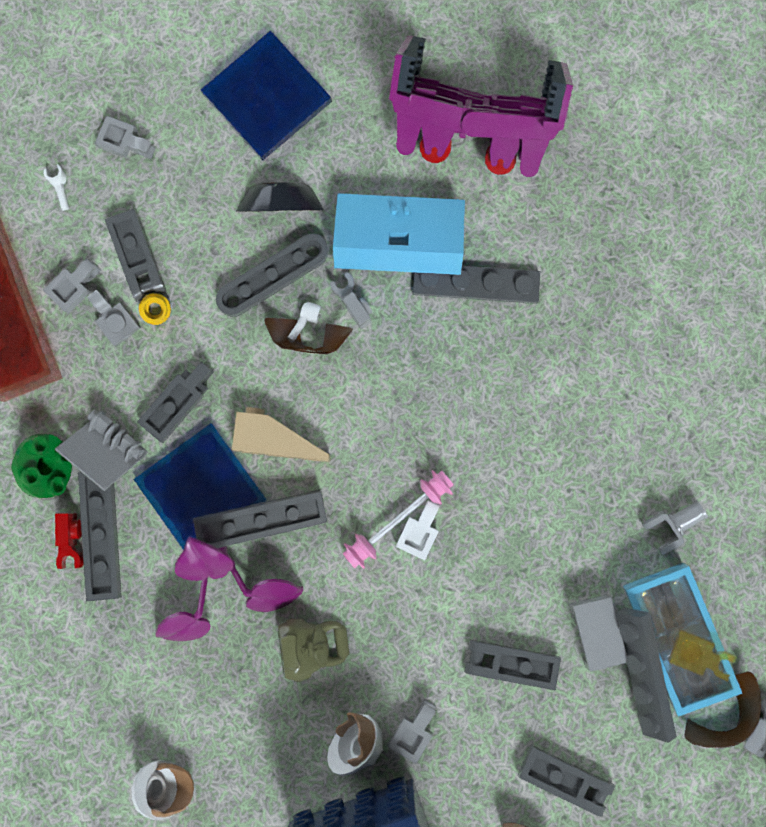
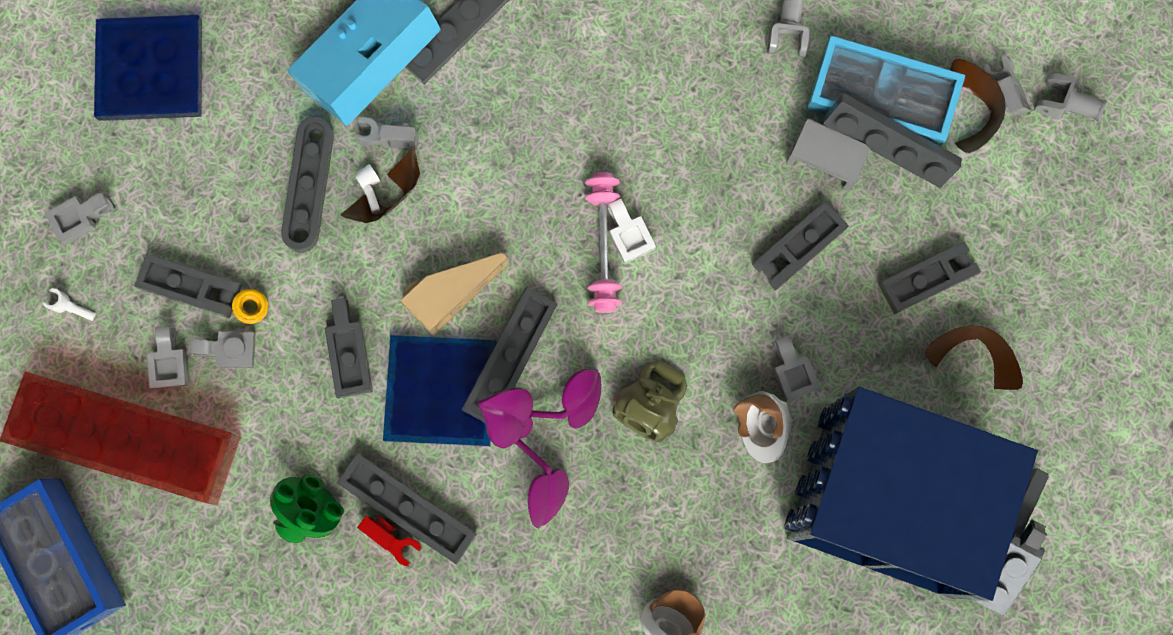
camera: 60 degrees left, 5 degrees down
(102, 450) = (335, 444): light grey hinge -> none
(283, 197) = (243, 126): black piece -> none
(696, 655) = (906, 83): clear yellow plate -> none

